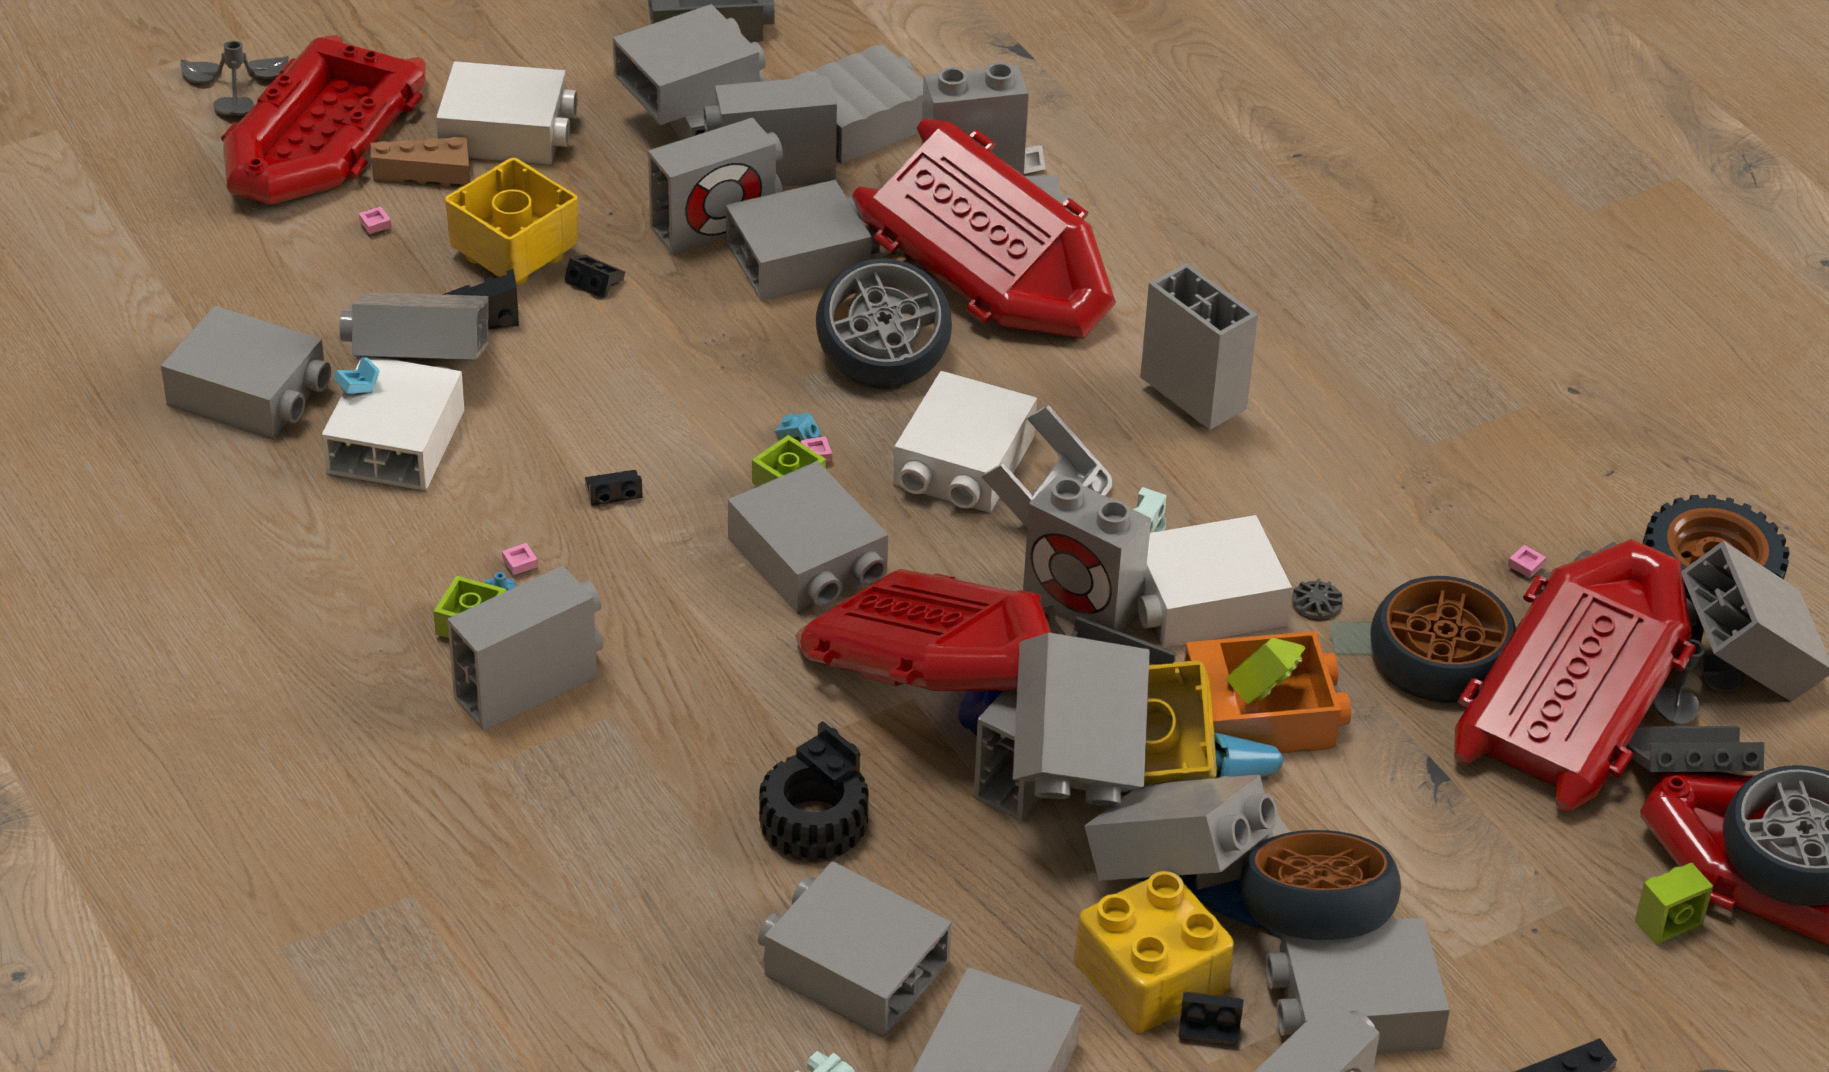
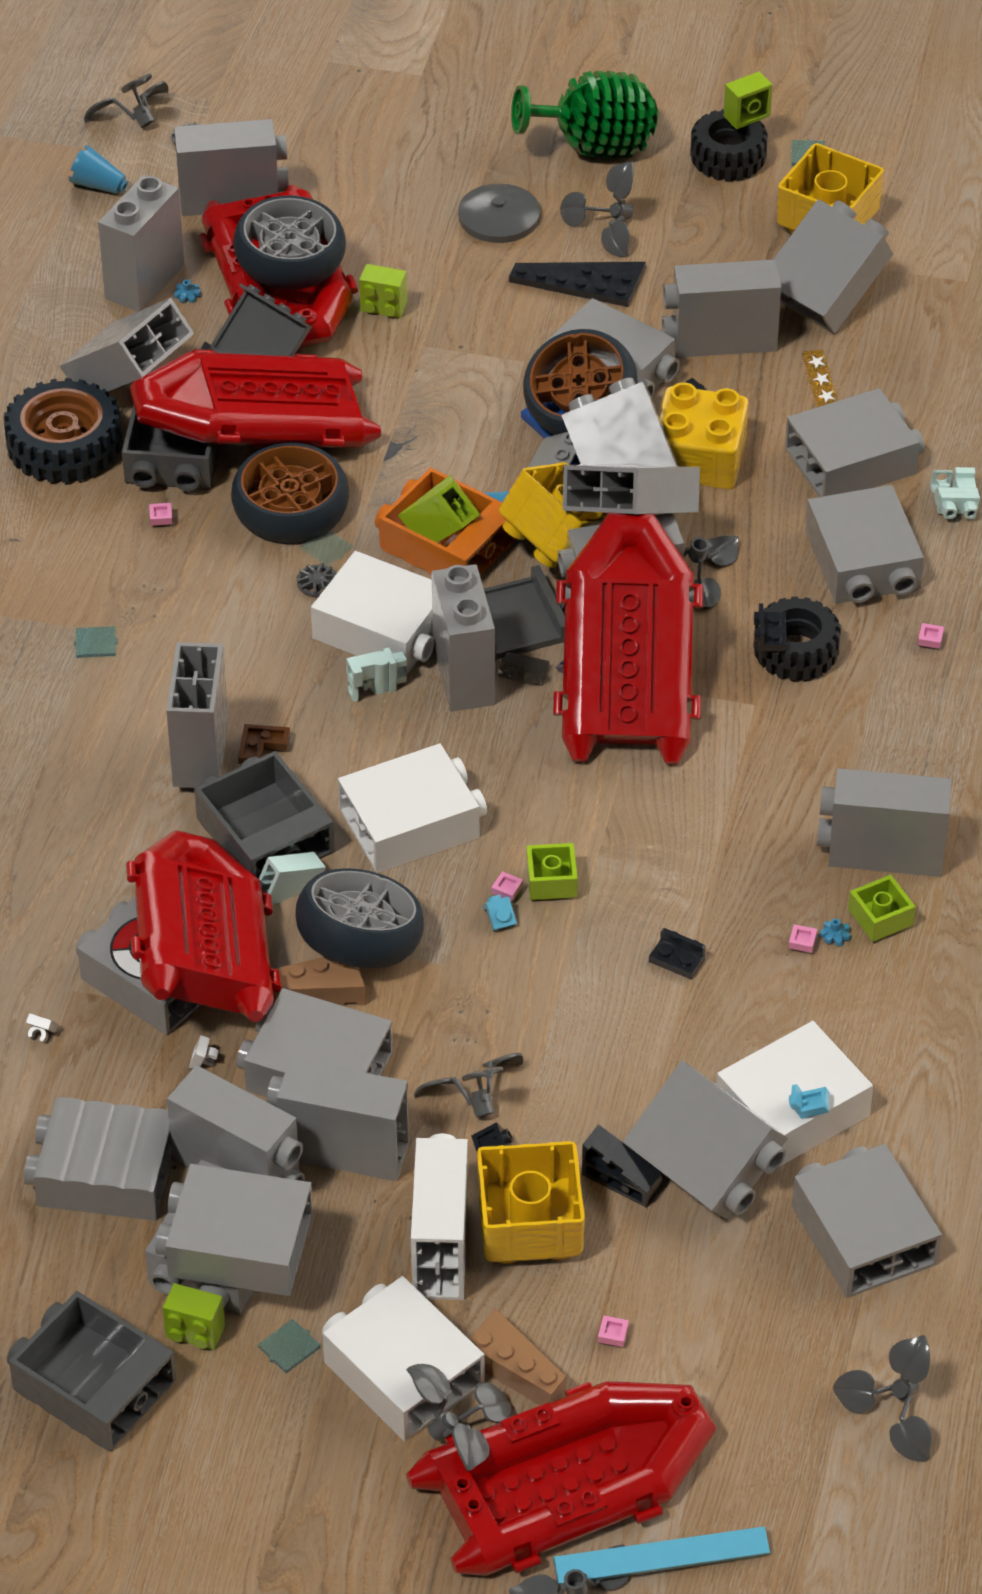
camera: 135 degrees left, 5 degrees up
(111, 295) = (912, 1360): none -> dark grey plant
(197, 121) = (665, 1554): none -> medium azure tile
(448, 72) = (469, 1442): none -> dark grey plant
(573, 157) = (440, 1217): none -> white brick
(601, 101) = (289, 1346): none -> clear light blue piece
(640, 257) = (480, 1099): none -> dark grey plant
(694, 913) = (930, 635): none -> bright pink plate
(808, 537) = (601, 806): light grey brick -> none
(984, 100) = (90, 1019): light grey brick -> none
(992, 344) = (288, 874): none -> light aqua slope
(1004, 873) = (722, 553): none -> dark grey plant
(1070, 362) = (263, 813): none -> dark grey brick
(1073, 462) = (390, 738): light grey windscreen -> none
(1164, 436) = (261, 737): none -> reddish brown plate
(1412, 434) = (95, 642): none -> clear light blue piece

